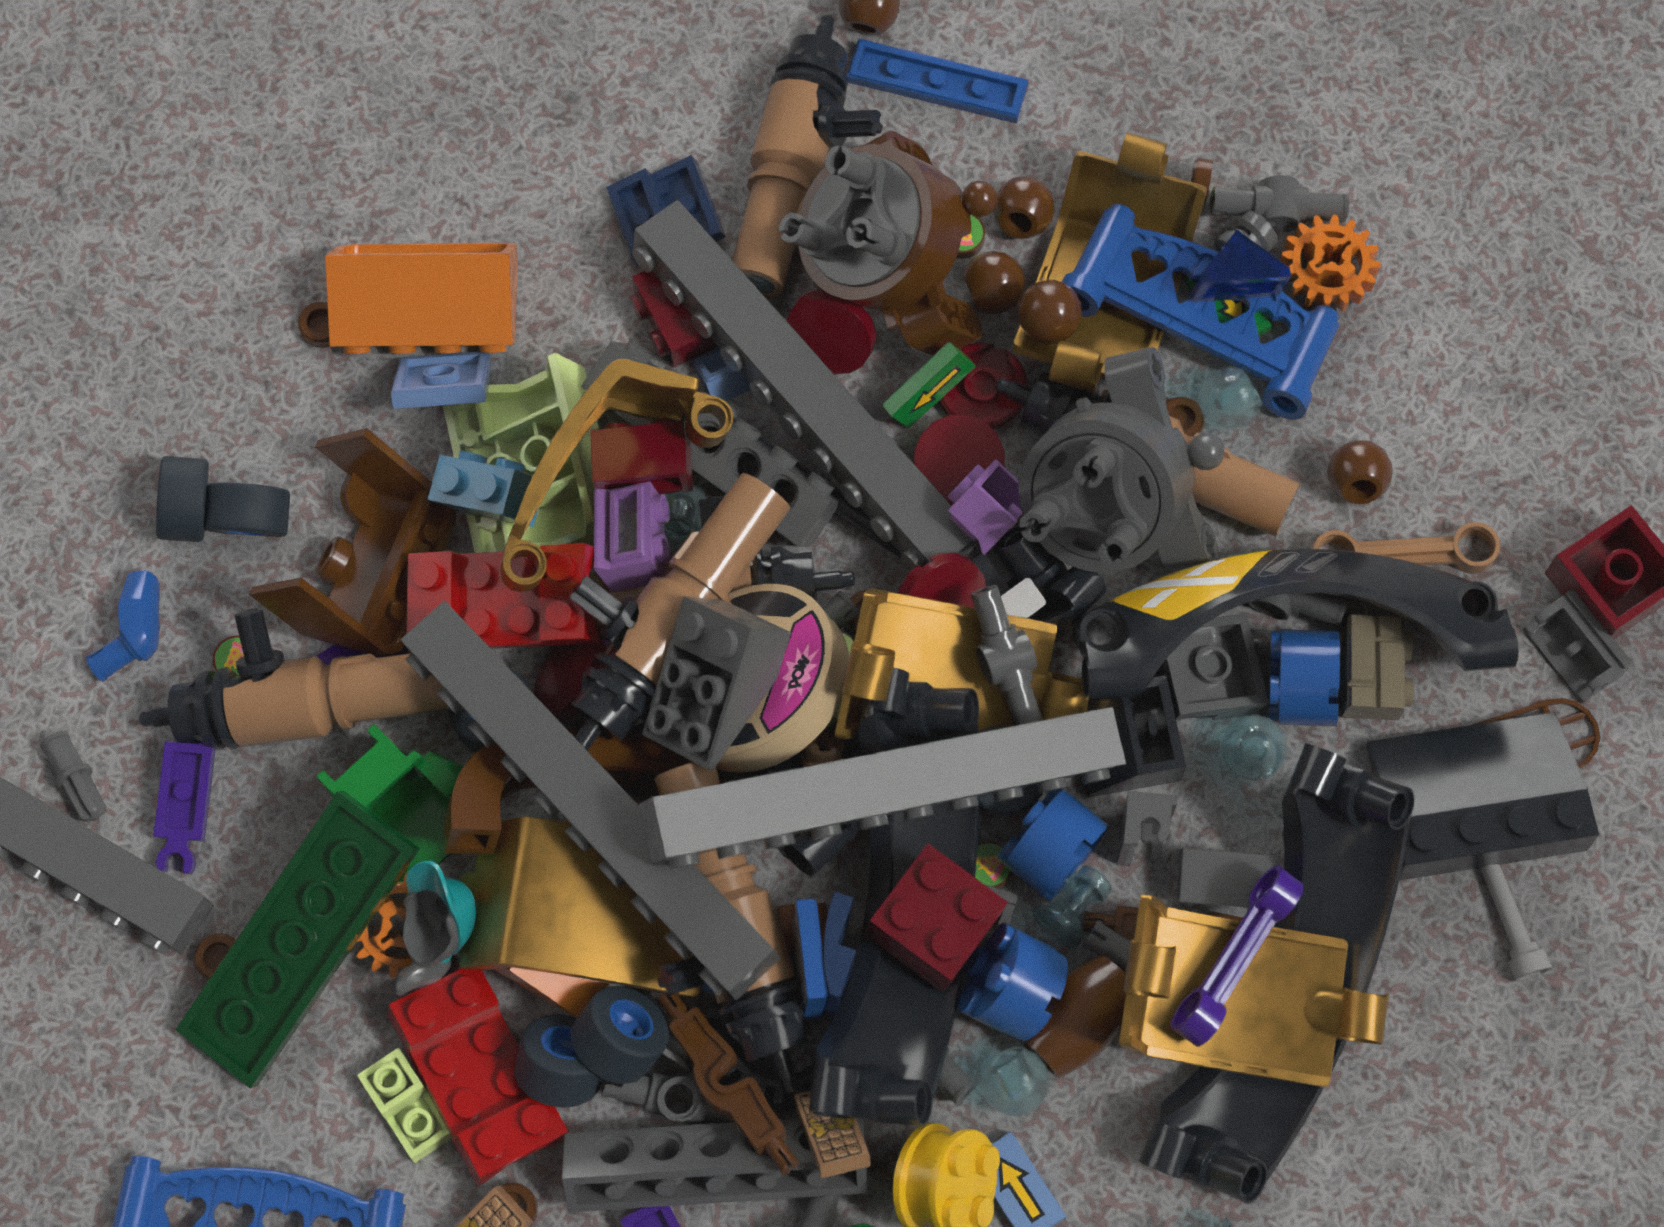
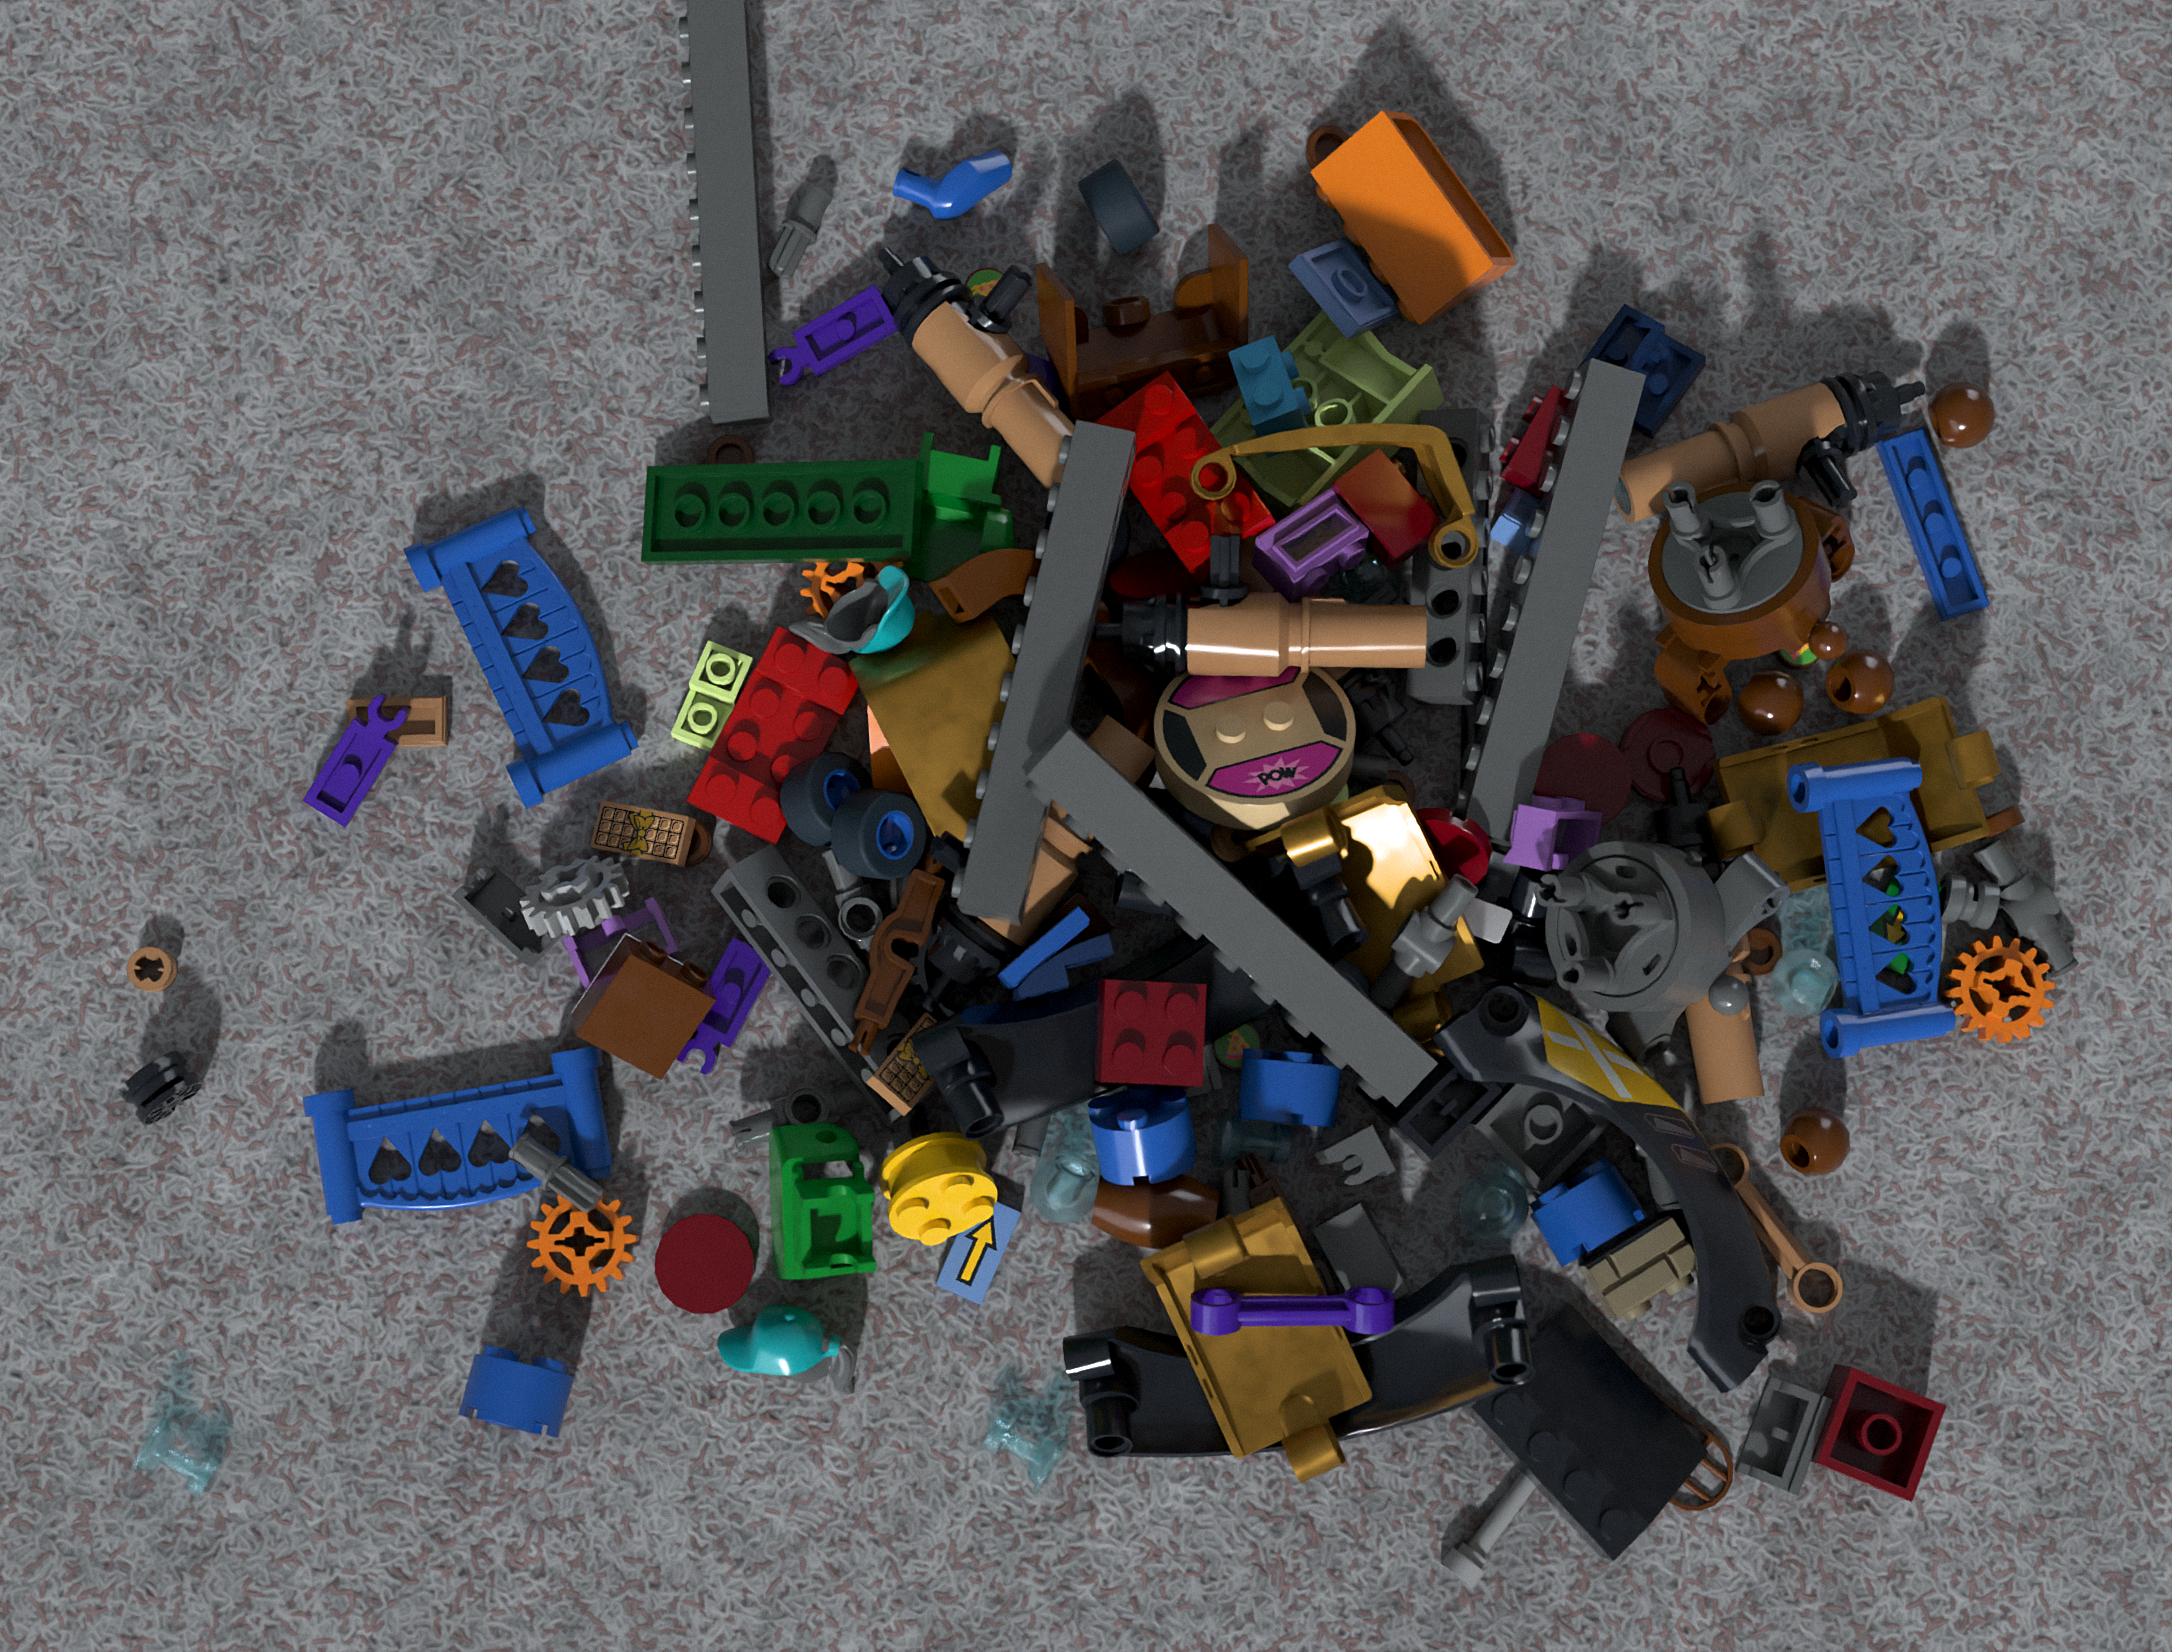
camera: 45 degrees right, 10 degrees up
(181, 498) = (1091, 145): black wheel -> none
(713, 678) = (1224, 705): dark grey slope -> none
(834, 330) = (1620, 593): dark red tile -> none
(928, 385) = (1632, 709): green tile -> none
(1049, 312) = (1768, 771): reddish brown piece -> none
(1241, 272) = (1929, 916): clear blue slope -> none

